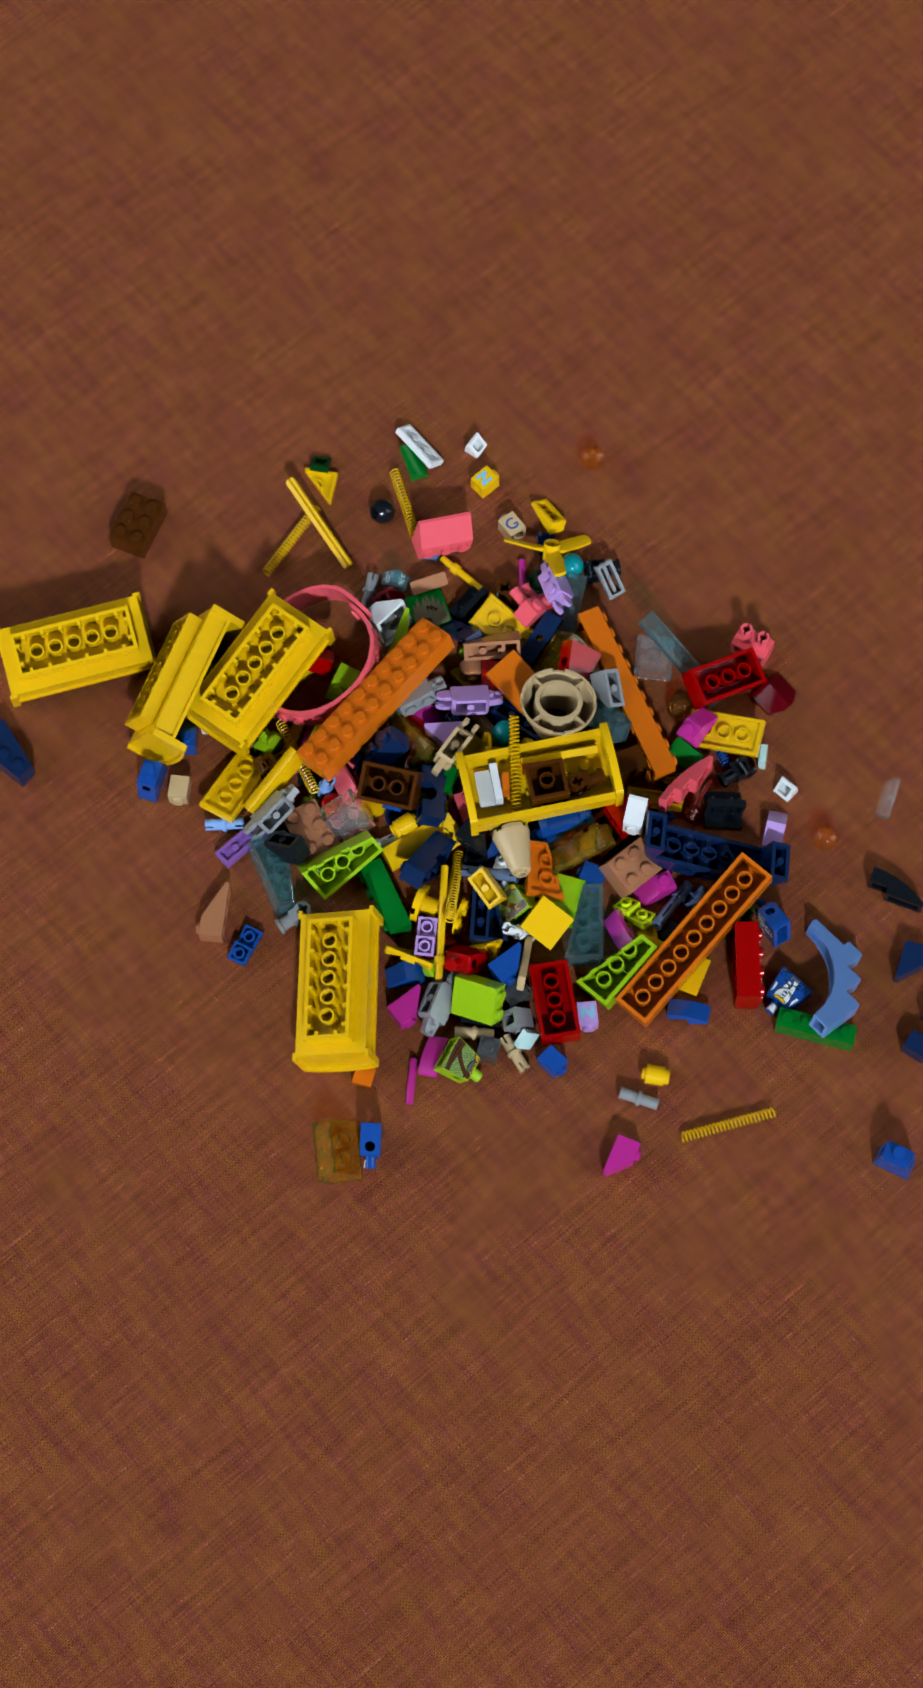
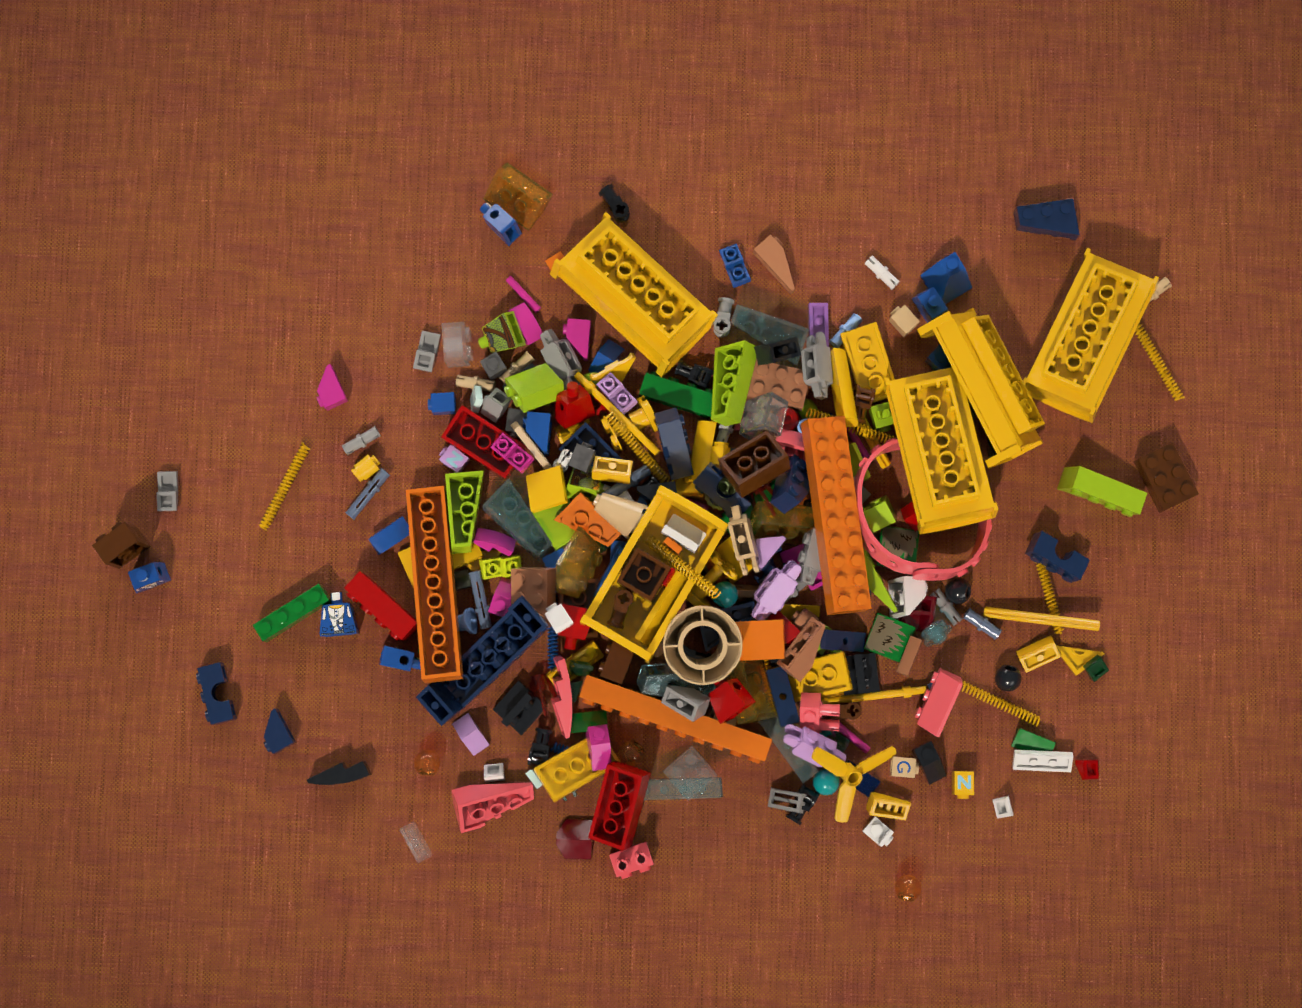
camera: 130 degrees right, 15 degrees up
(66, 571) = (1165, 377): none -> yellow piece
(117, 788) = (948, 278): none -> blue slope
(155, 836) = (882, 272): none -> white pin
(187, 557) = (1102, 490): none -> lime wedge
(268, 557) = (1042, 550): none -> dark blue arch
(276, 1073) = (615, 203): none -> black connector
(345, 508) = (1038, 654): none -> yellow slope
(353, 652) = (900, 542): none -> dark tan slope
(354, 588) = (958, 590): none -> black piece
(356, 897) = (694, 373): none -> black connector
(359, 559) = (982, 624): none -> sand blue pin
(397, 416) = (1087, 769): none -> red slope
(489, 515) = (929, 762): none -> black slope
(498, 913) = (582, 457): none -> flat silver brick
(498, 1088) = (456, 344): none -> clear brick
(523, 1112) = (427, 351): none -> light grey slope
(543, 967) = (512, 453): none -> dark pink slope
(572, 506) = (878, 832): none -> white bracket
(652, 790) = (580, 668): none -> clear green slope
(673, 1057) = (353, 511): none -> sand blue pin
(817, 780) = (485, 801): none -> coral wedge
(817, 1210) = (167, 491): none -> light grey slope
(842, 980) = (305, 664): medium blue arch -> none
(892, 1194) = (120, 545): none -> reddish brown brick

